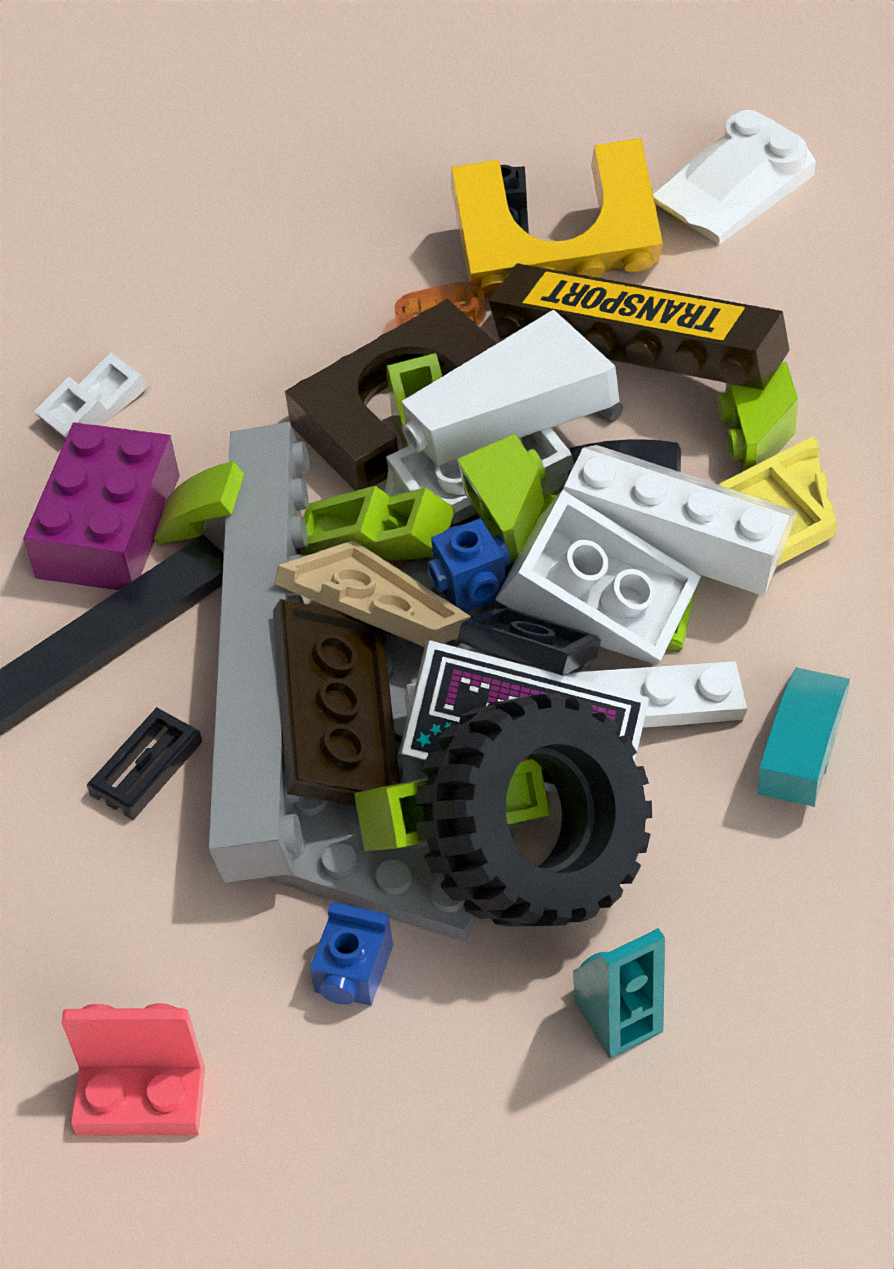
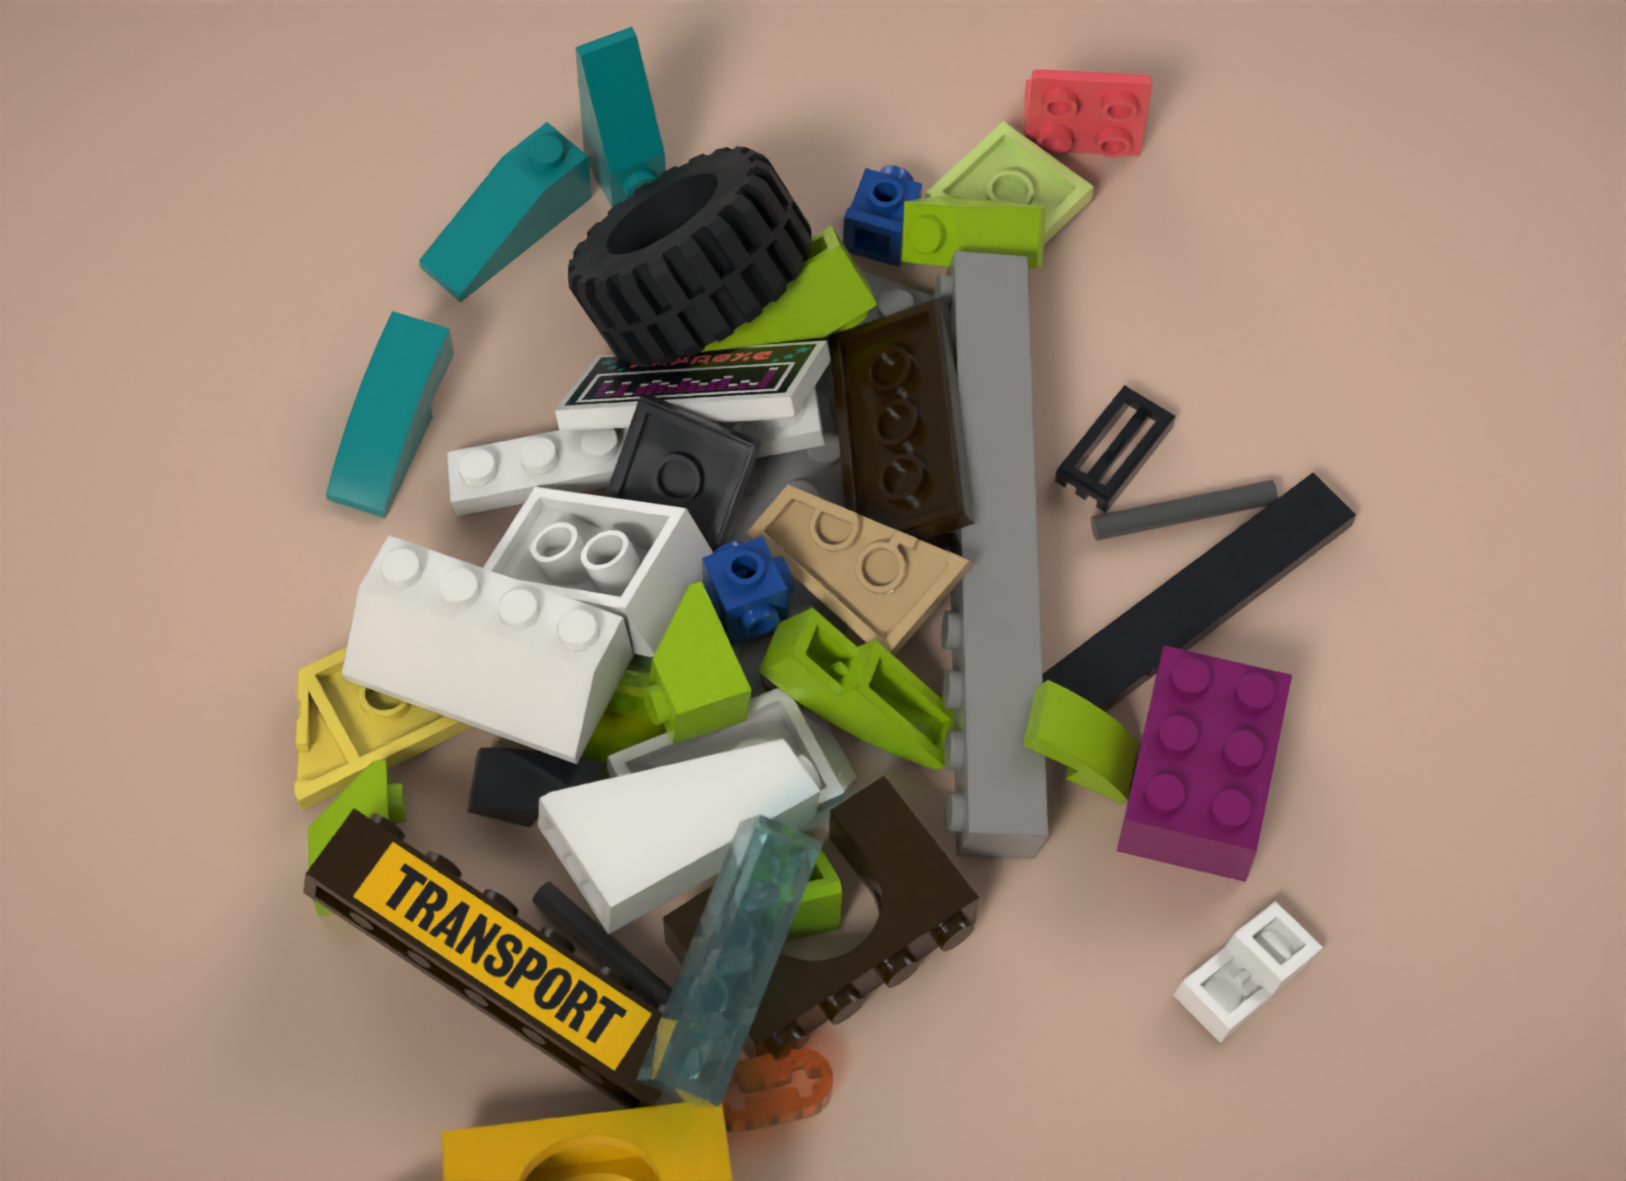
camera: 175 degrees right, 10 degrees up
(89, 714) = (1183, 510): none -> dark grey bar
(227, 984) = (1017, 171): none -> yellowish green plate
(266, 906) = (944, 224): none -> lime slope
(462, 290) = (730, 961): none -> clear light blue brick
(725, 936) = (510, 211): none -> teal slope

